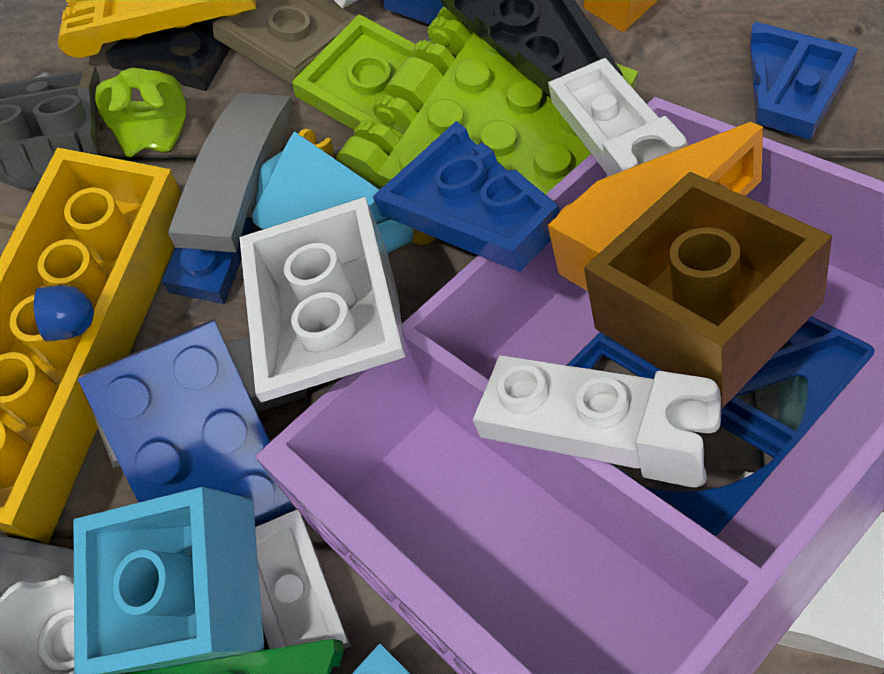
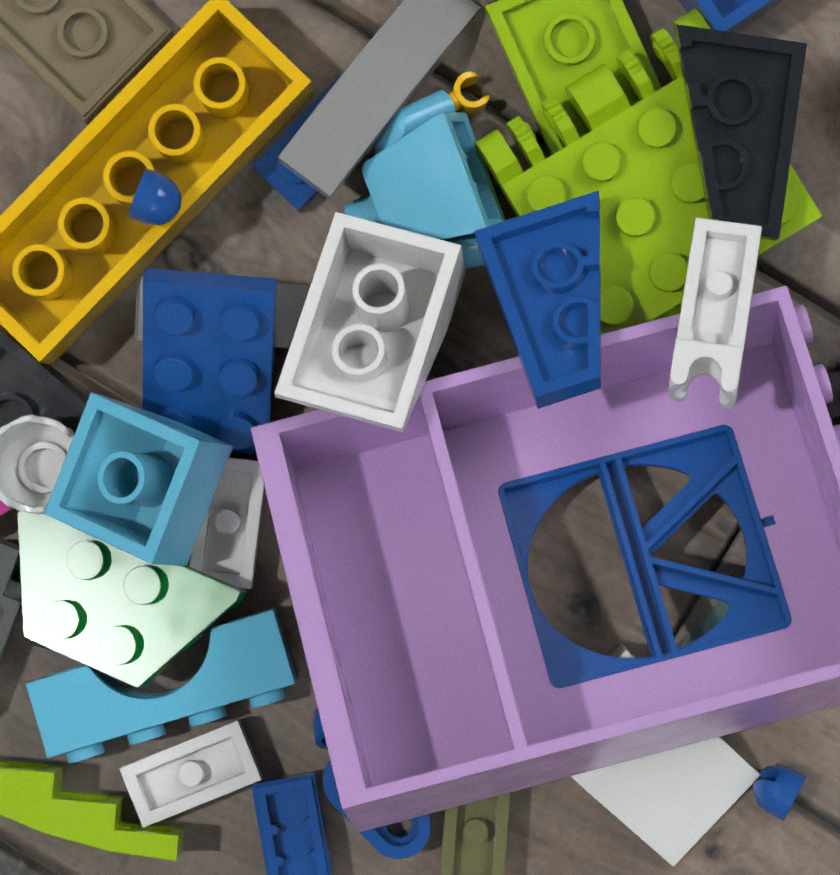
camera: 35 degrees right, 25 degrees up
(603, 416) = (502, 570): white plate -> none
(618, 200) = (660, 430): light orange slope -> none
(708, 283) = (643, 532): pearl gold brick -> none

